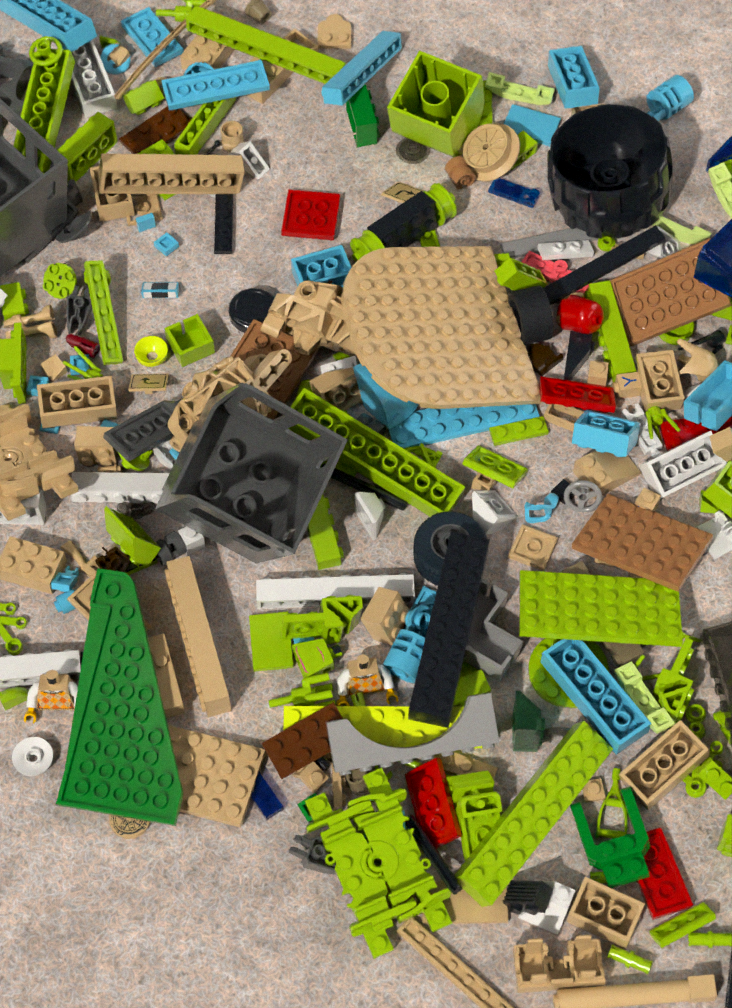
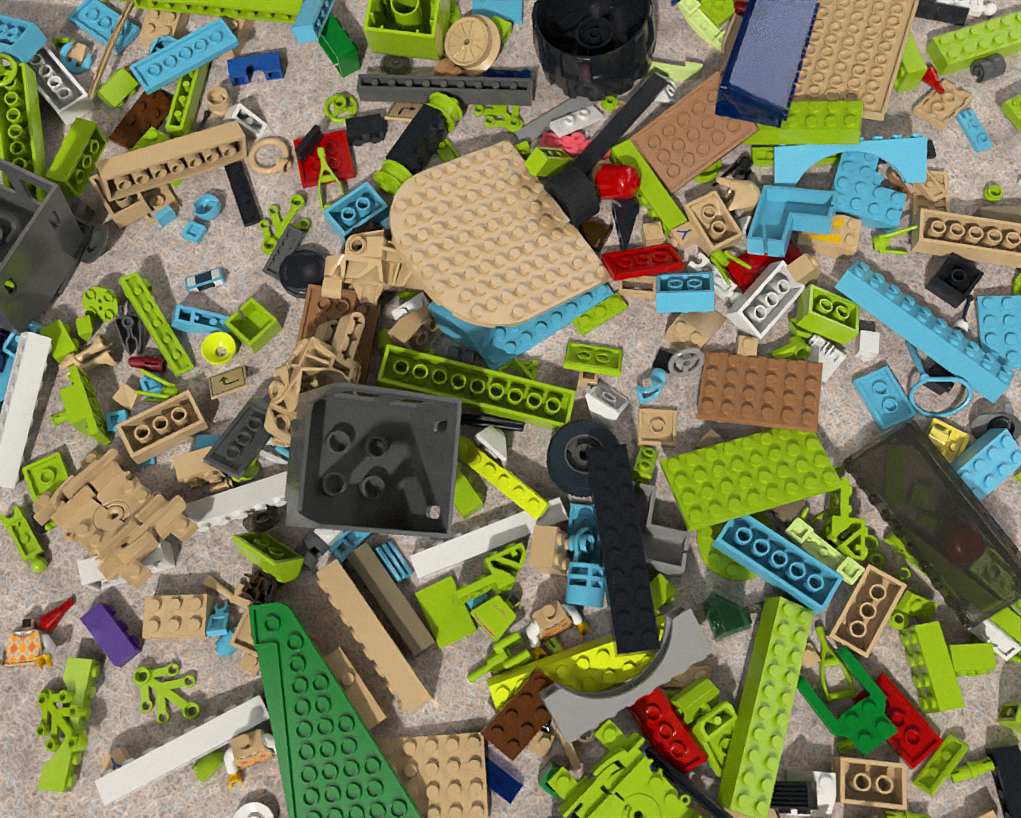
camera: 20 degrees left, 10 degrees up
(38, 296) = (85, 327): none -> lime slope
(79, 625) = (250, 663): none -> tan plate
(140, 321) = (197, 320): none -> medium azure slope
(189, 221) = (207, 201): none -> medium azure hair
(210, 552) = (351, 540): none -> medium azure plate
(225, 613) = (390, 599): none -> dark tan brick
(242, 583) = (396, 561): none -> medium azure tile
(247, 279) = (286, 245): none -> dark grey plate
(250, 265) = (281, 226): none -> lime plant
(265, 111) = (243, 67): none -> blue arch
(269, 206) = (280, 164): none -> tan piece
(301, 196) = (309, 143): none -> black tile
(306, 232) = (325, 178): none -> lime piece
(344, 172) = (340, 106): none -> lime piece
(359, 199) = (364, 129): none -> black brick
(365, 540) = (502, 478): none -> neon yellow plate
(465, 189) = (464, 89): none -> dark grey brick
(494, 218) = (500, 111): none -> lime plant
(505, 574) = (644, 466): none -> lime bracket
(690, 517) = (795, 348): none -> lime piece
(706, 834) = (931, 668): none -> lime brick

